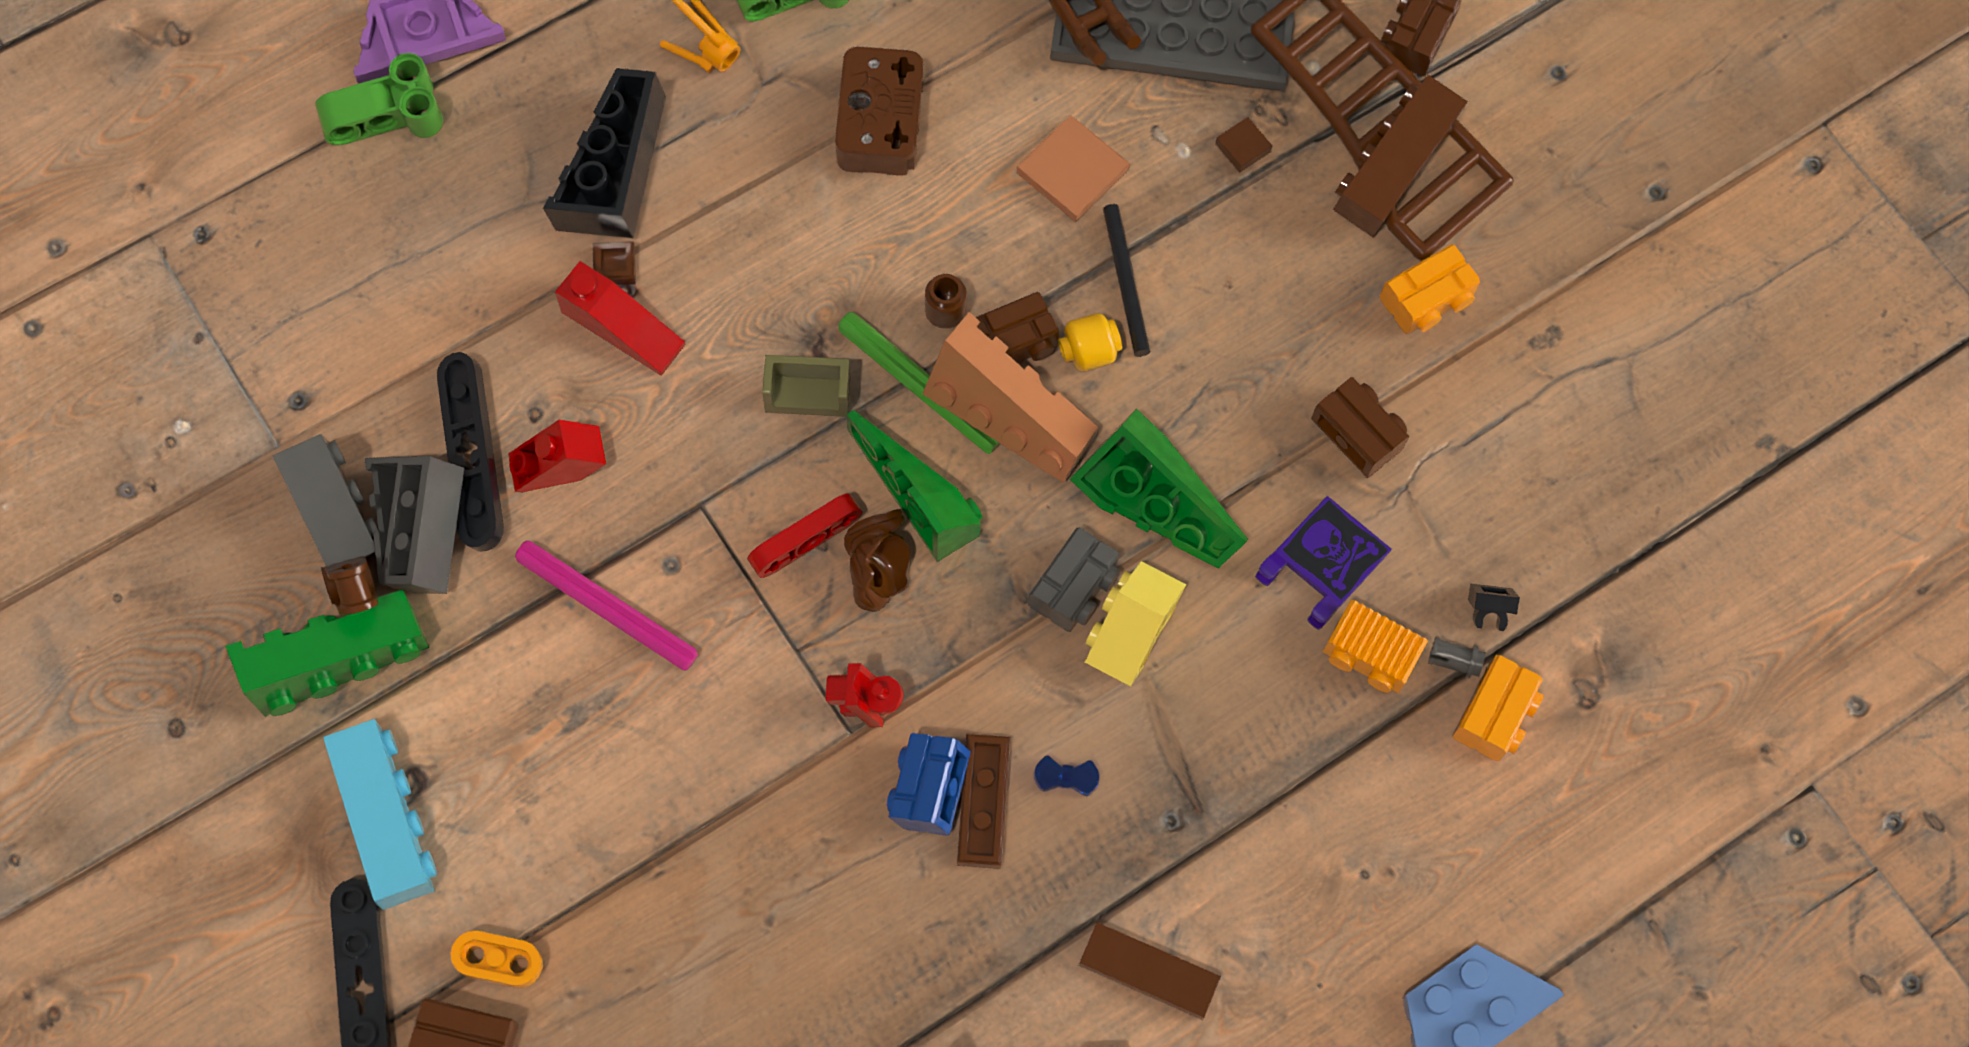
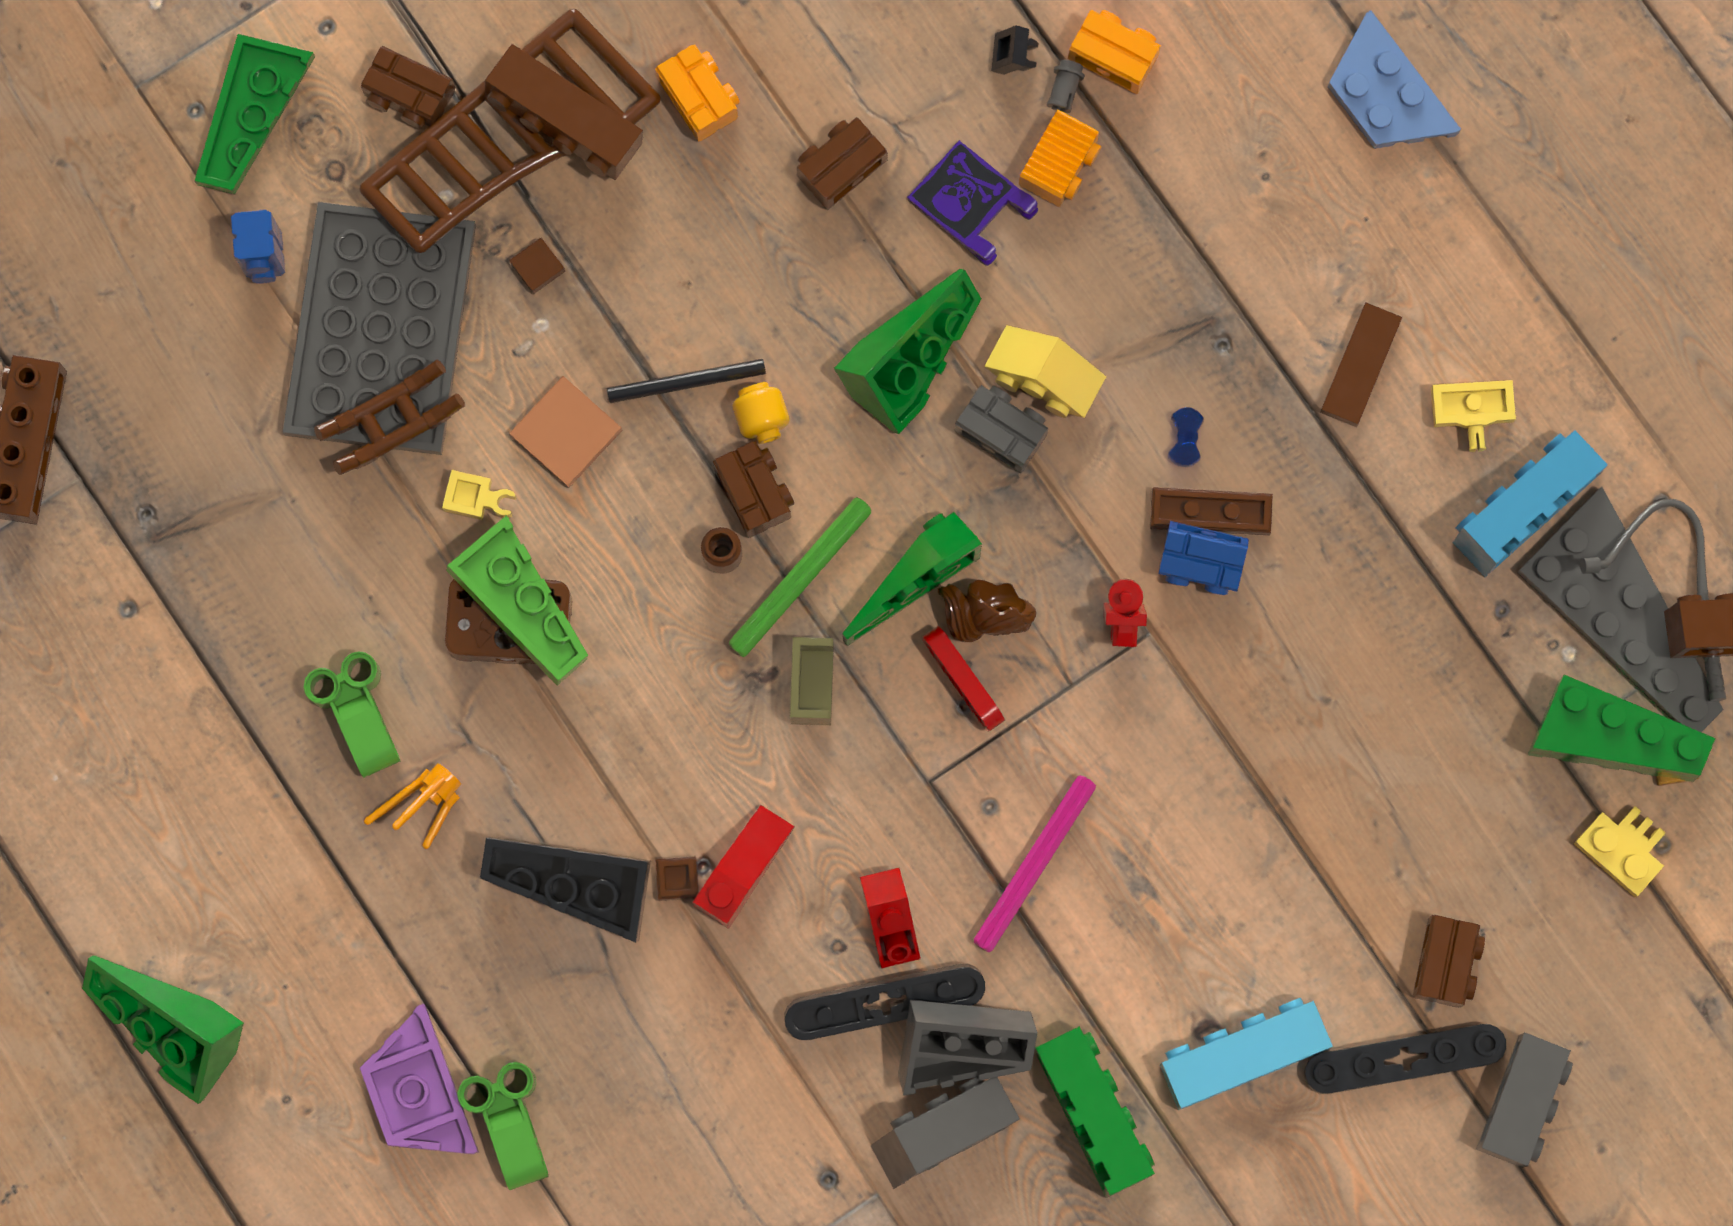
camera: 85 degrees left, 10 degrees up
(350, 585) = (1040, 1092): reddish brown piece -> none
(498, 959) = (1374, 939): light orange plate -> none
(897, 102) = (510, 590): none -> bright green wing
(1006, 82) = (471, 495): none -> light yellow plate
(1007, 402) = (832, 487): nougat wedge -> none

